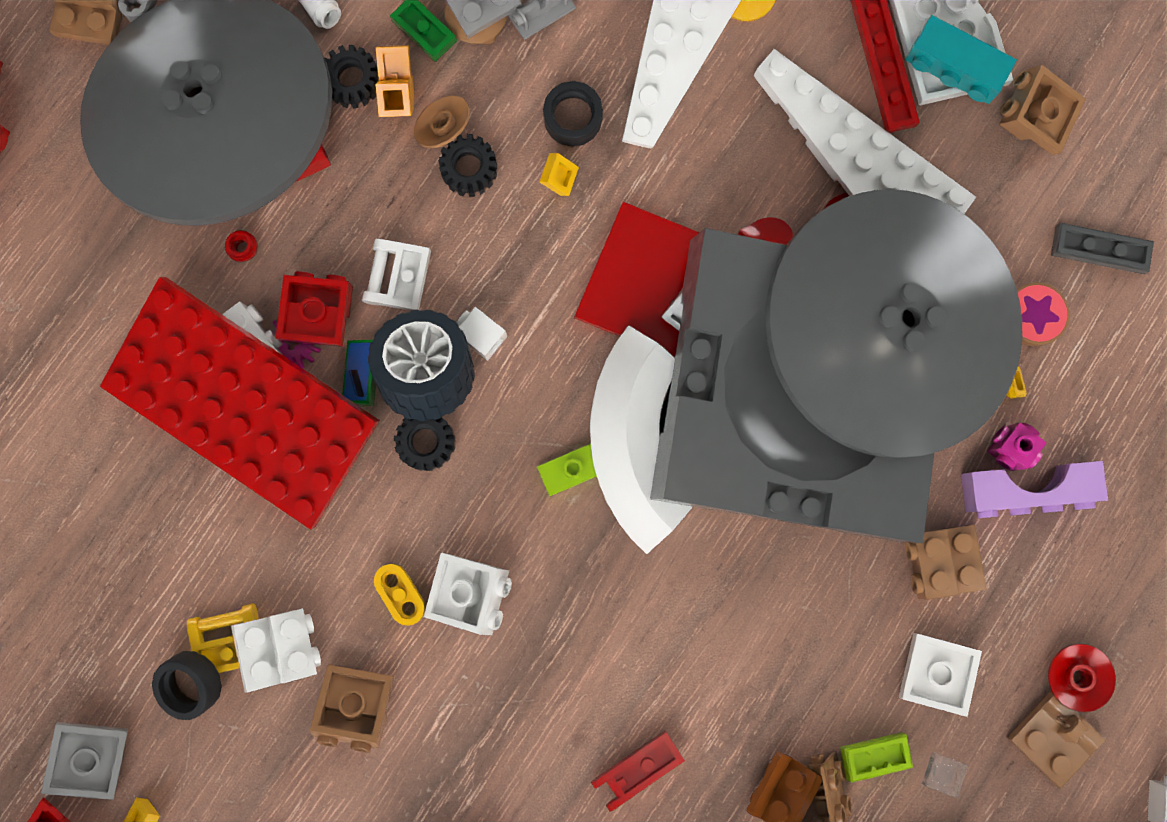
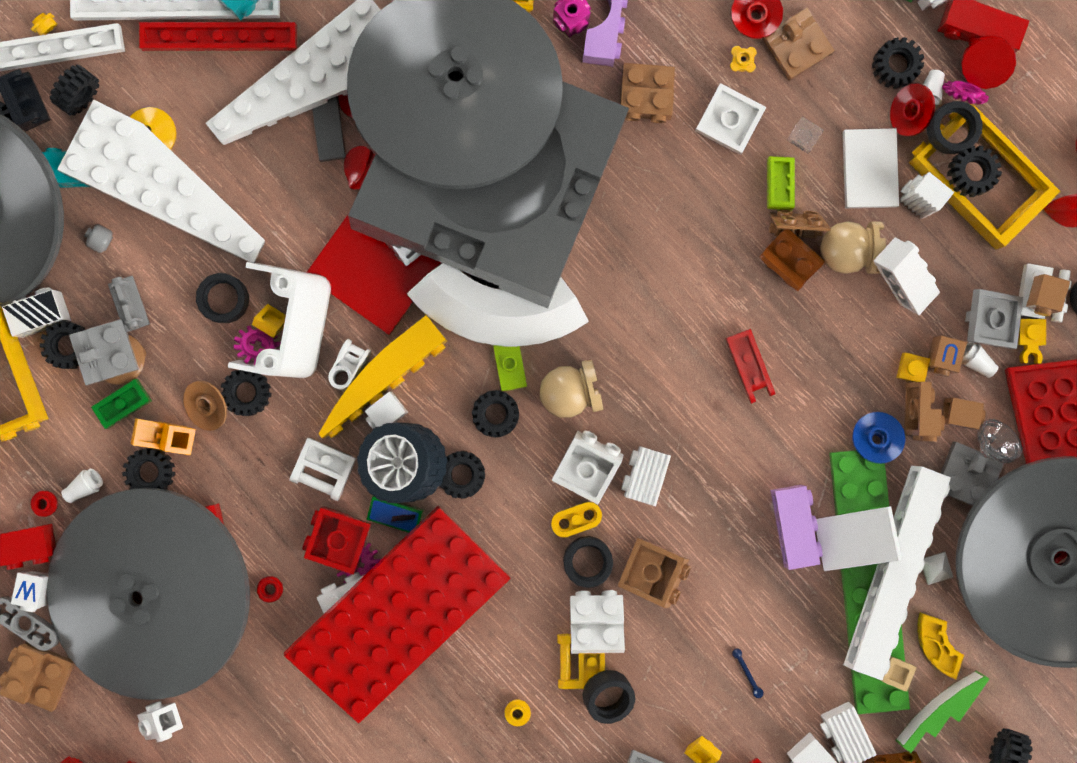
camera: 75 degrees left, 5 degrees up
(58, 162) = (159, 721): none -> white brick
(157, 575) = (521, 705): none -> yellow plate
(325, 628) = (596, 580): none -> black tyre
(471, 669) = (646, 475): none -> white brick
(487, 462) = (481, 406): none -> black tyre
(518, 155) = (251, 338): none -> dark pink gear
(528, 276) = (348, 363): none -> white piece
(529, 321) = (385, 371): none -> yellow slope
(555, 549) = (569, 390): none -> tan tile
(561, 210) = (302, 326): none -> white windscreen
(800, 192) = (329, 131): none -> dark grey tile
(1009, 669) = (742, 66): none -> yellow plate

